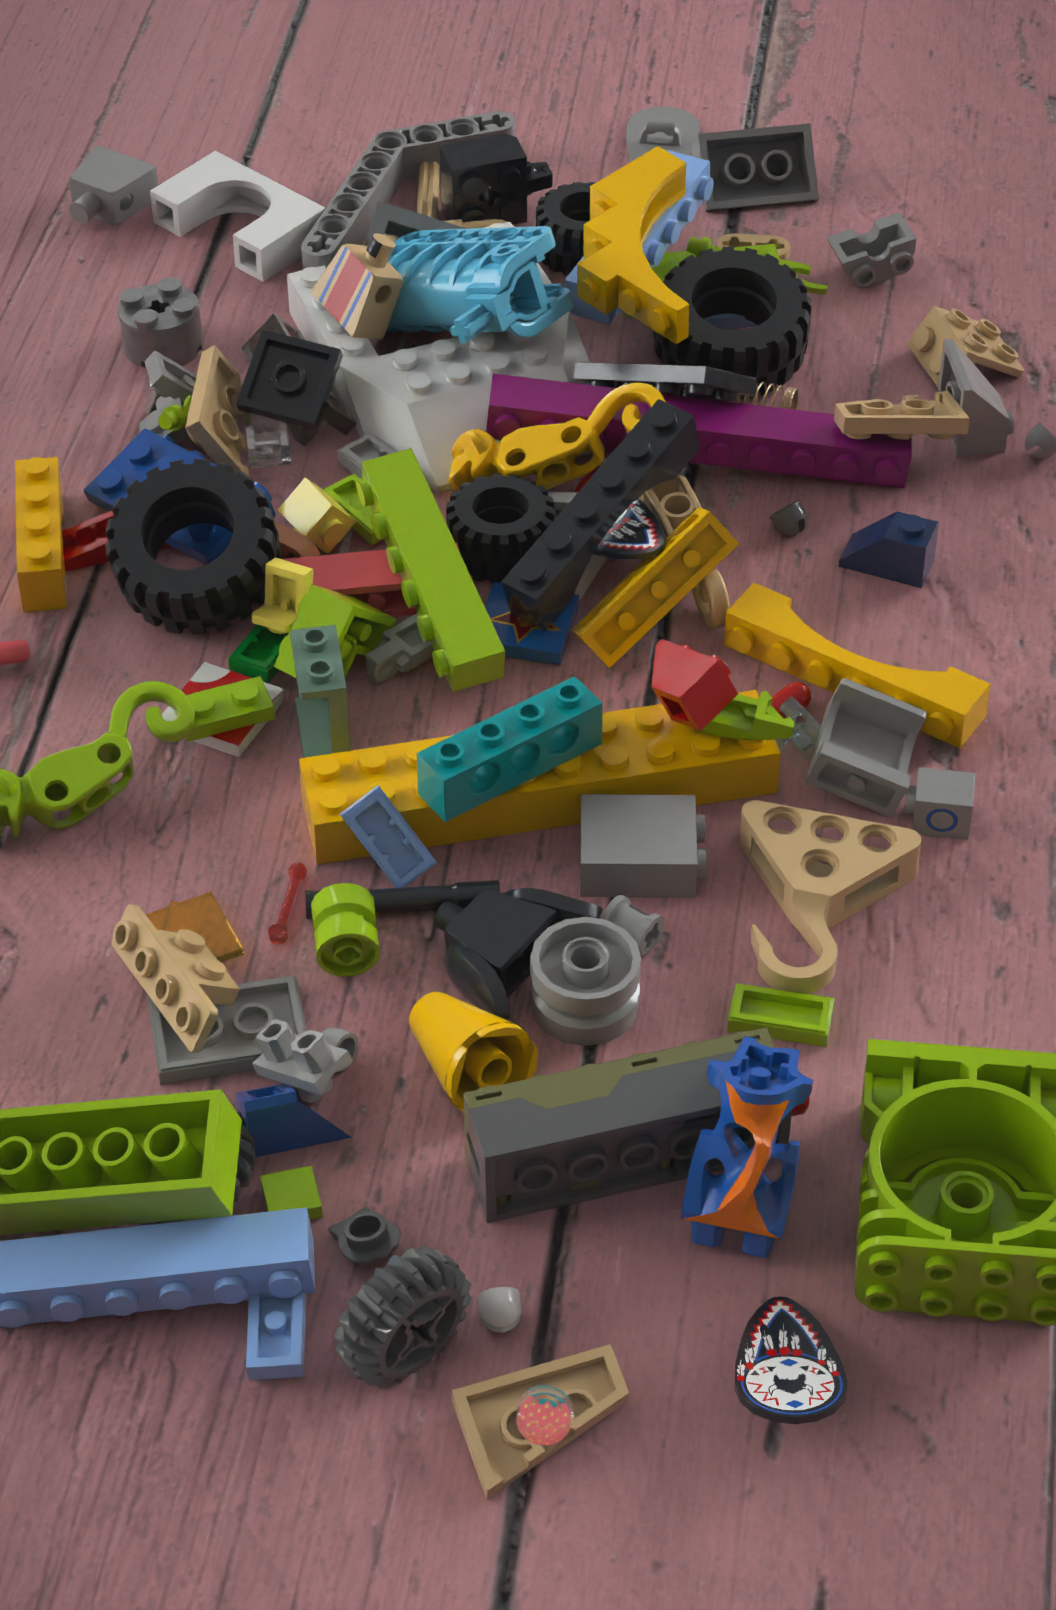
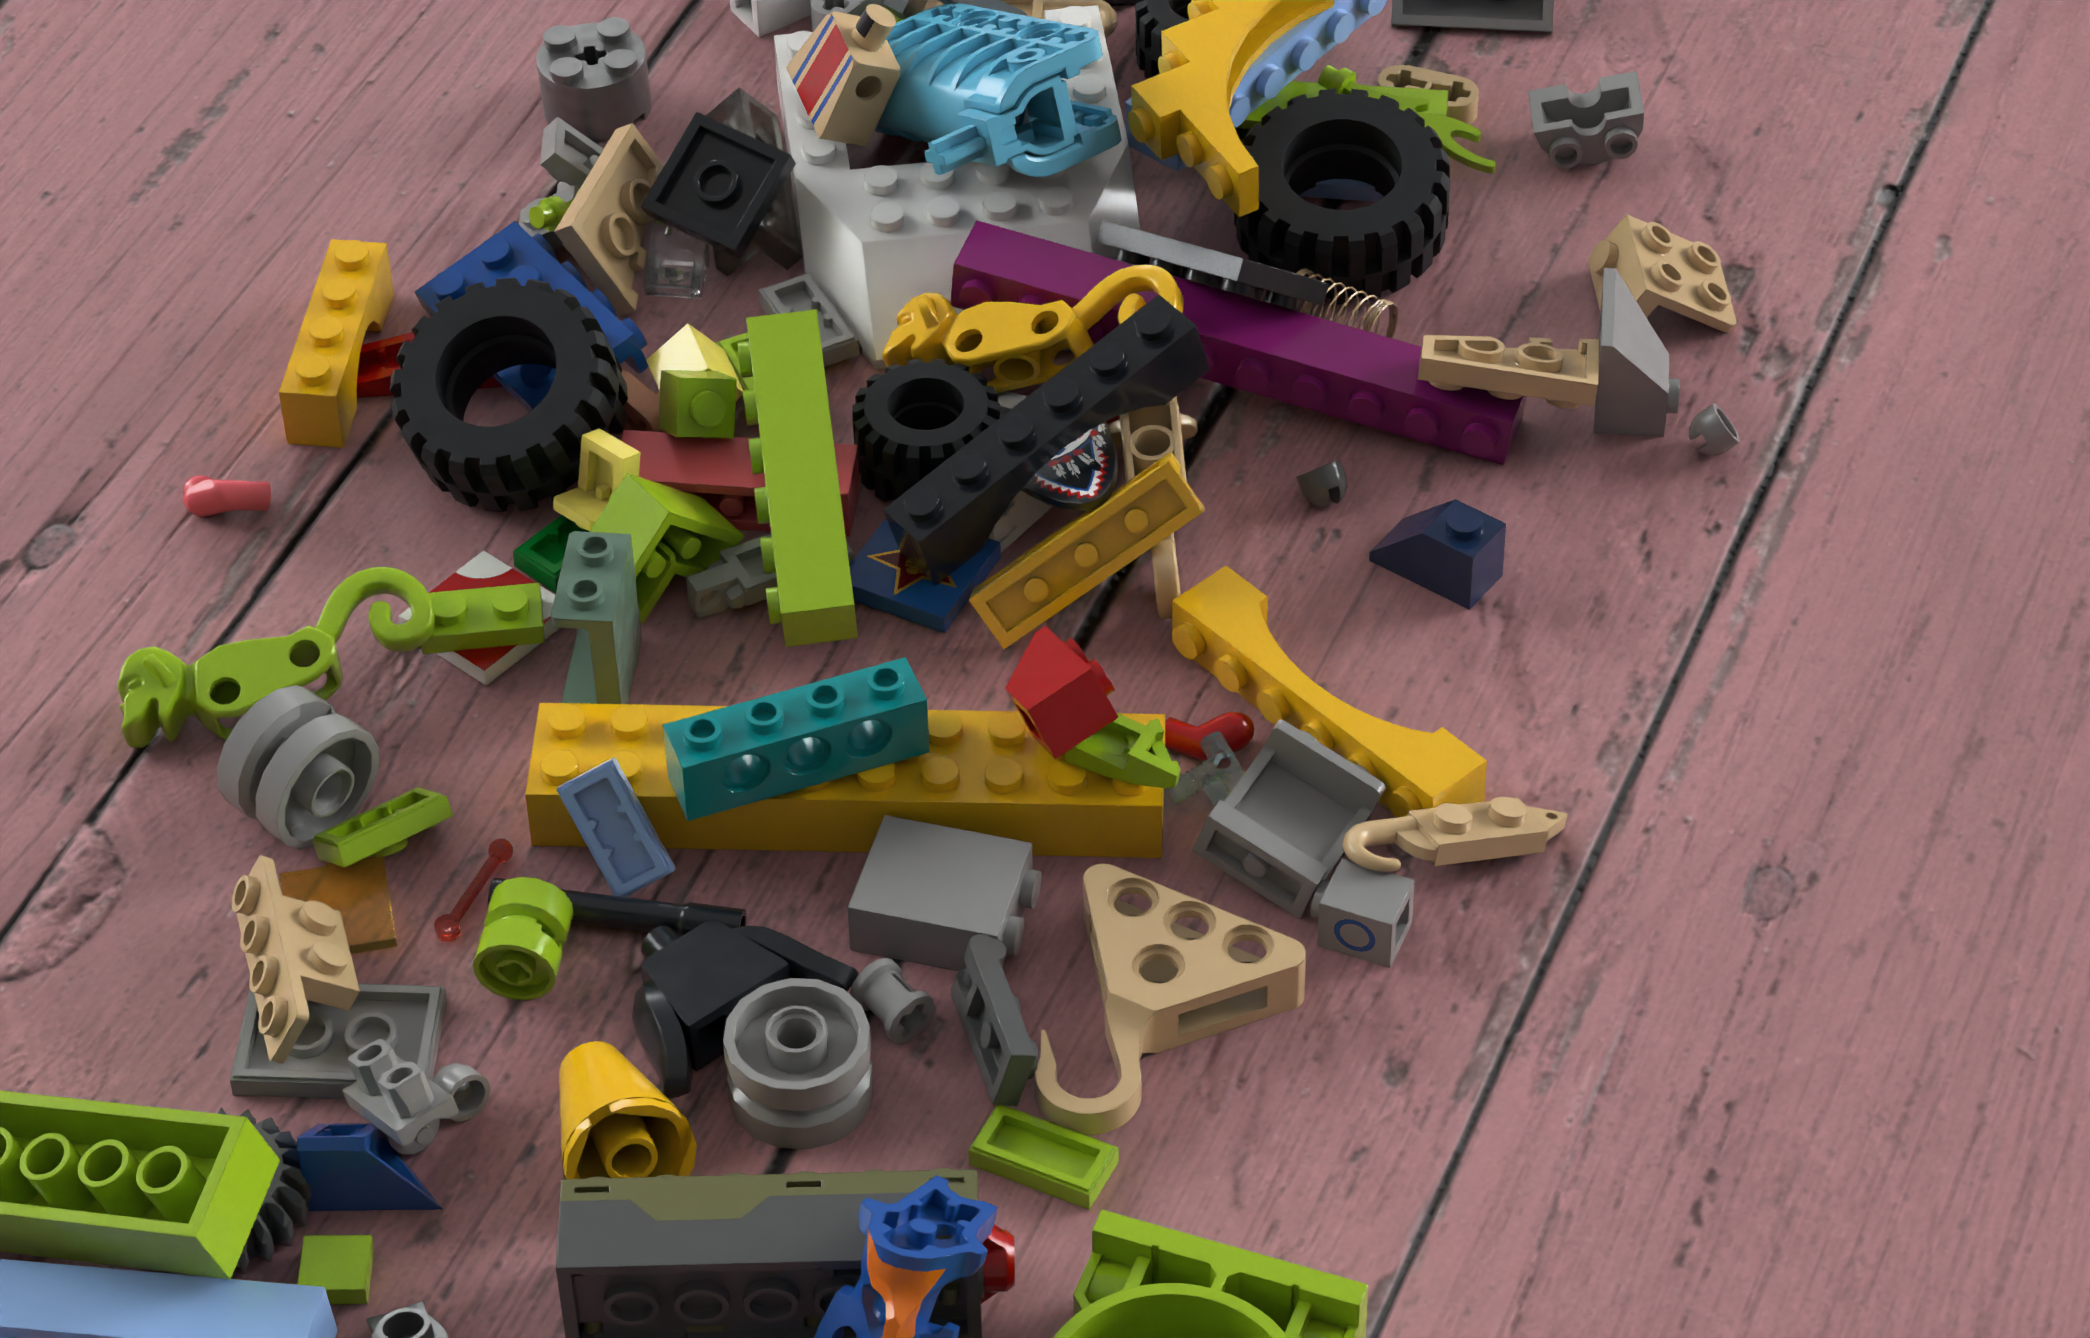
camera: 15 degrees right, 0 degrees up
(132, 835) = (297, 766): none -> light grey wheel
(205, 870) = (382, 828): none -> lime plate
(334, 531) = (697, 403): none -> lime brick
(714, 925) = (994, 1021): none -> dark grey plate
(984, 738) = (1456, 833): none -> tan plate

